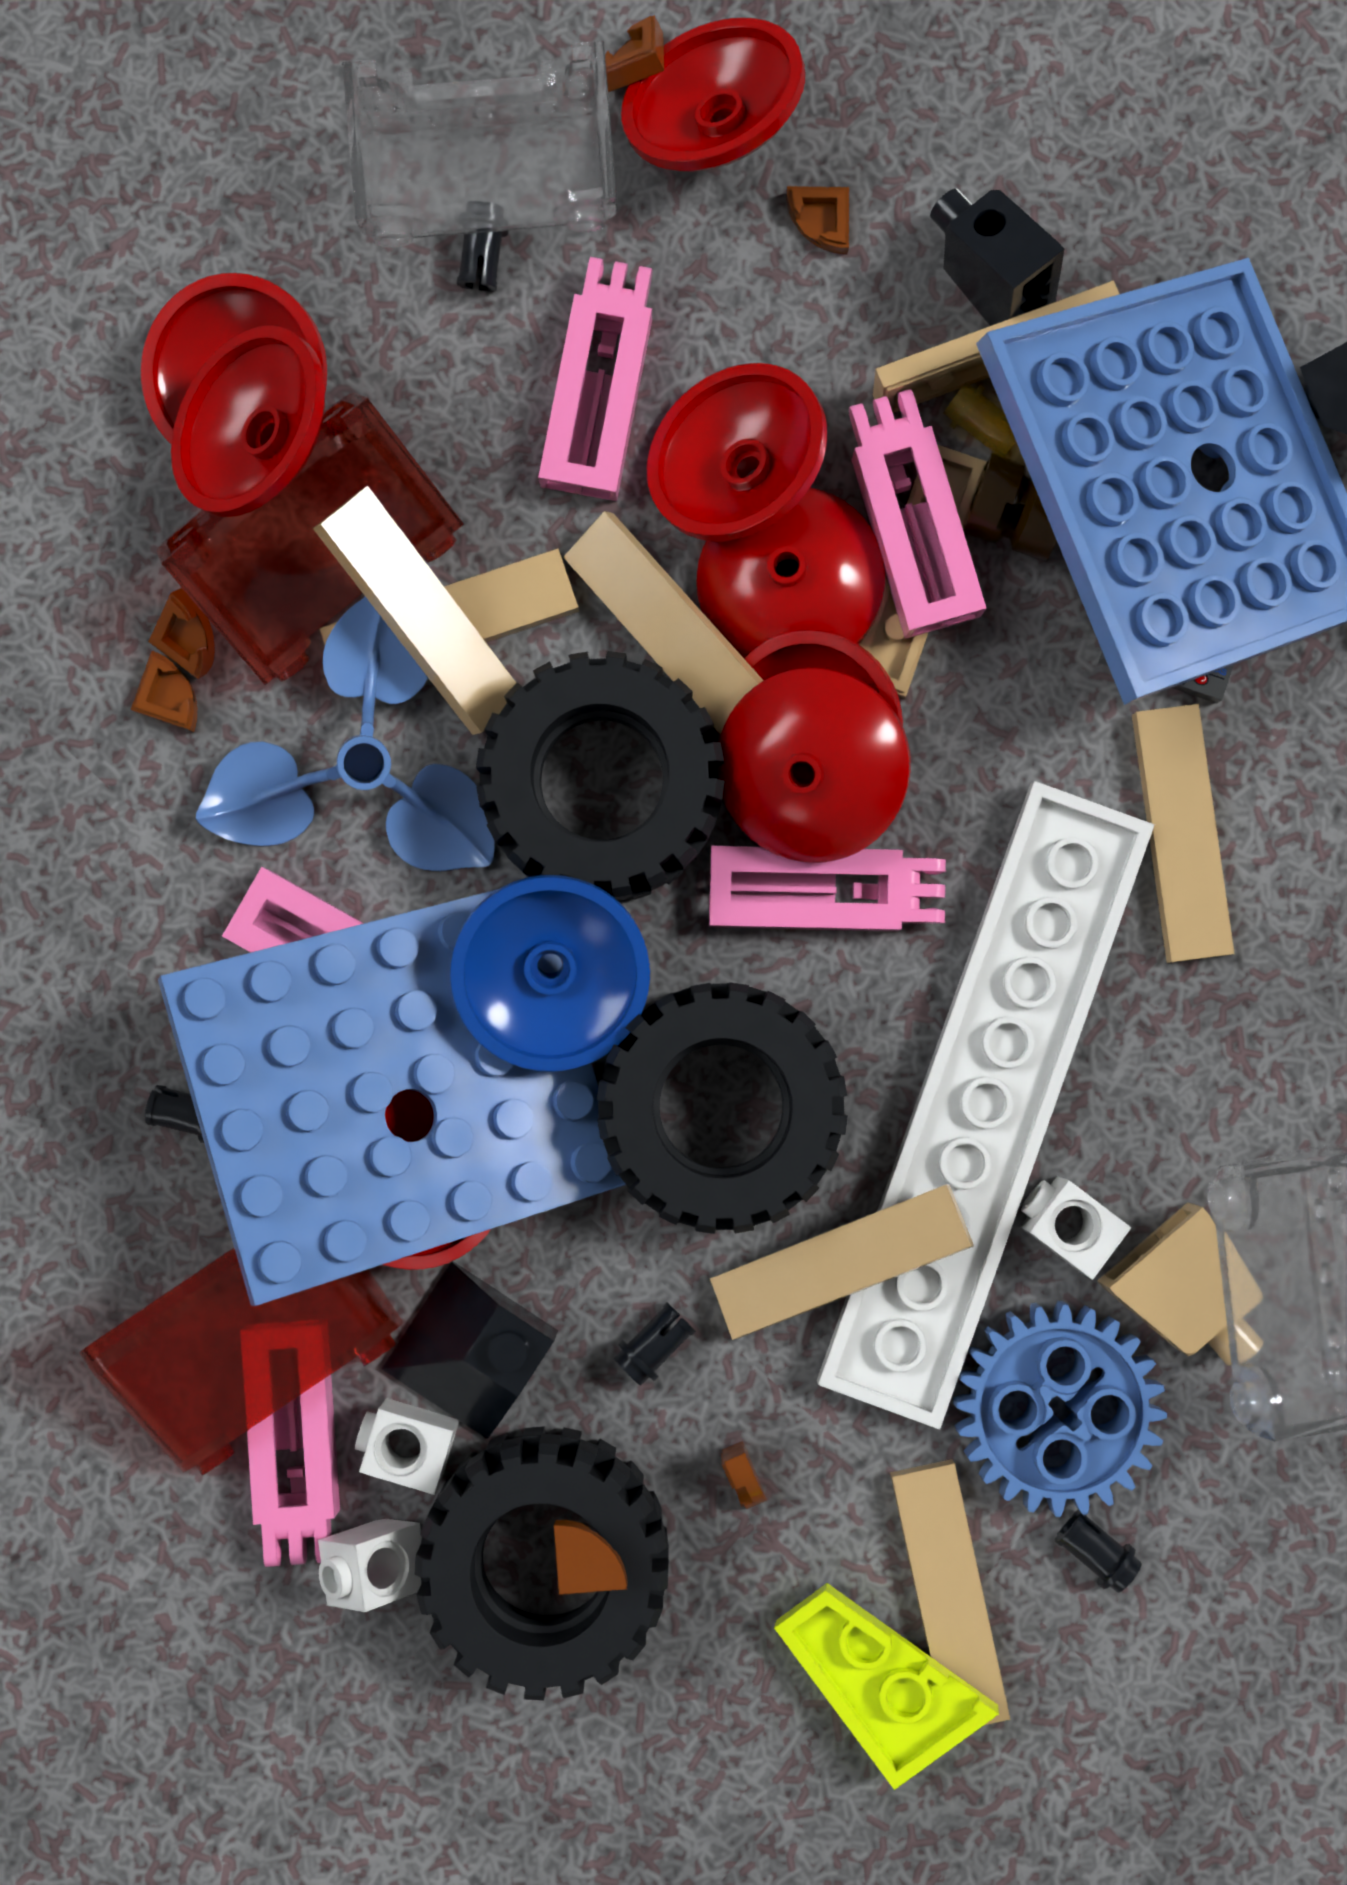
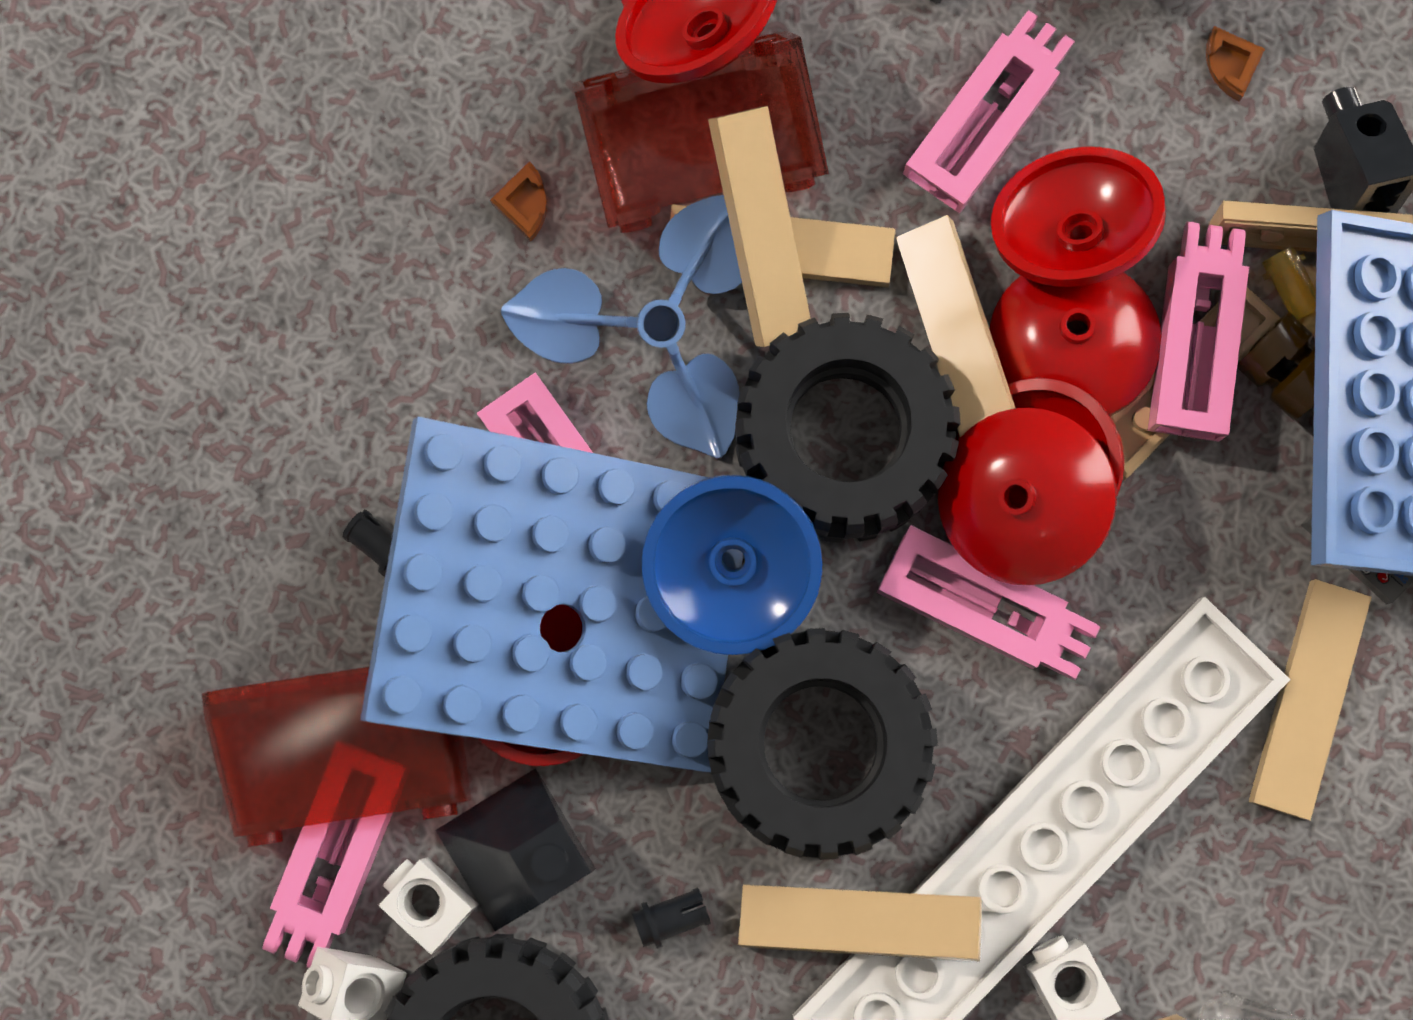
camera: 30 degrees right, 5 degrees down
(185, 634) = (562, 160): dark orange tile -> none

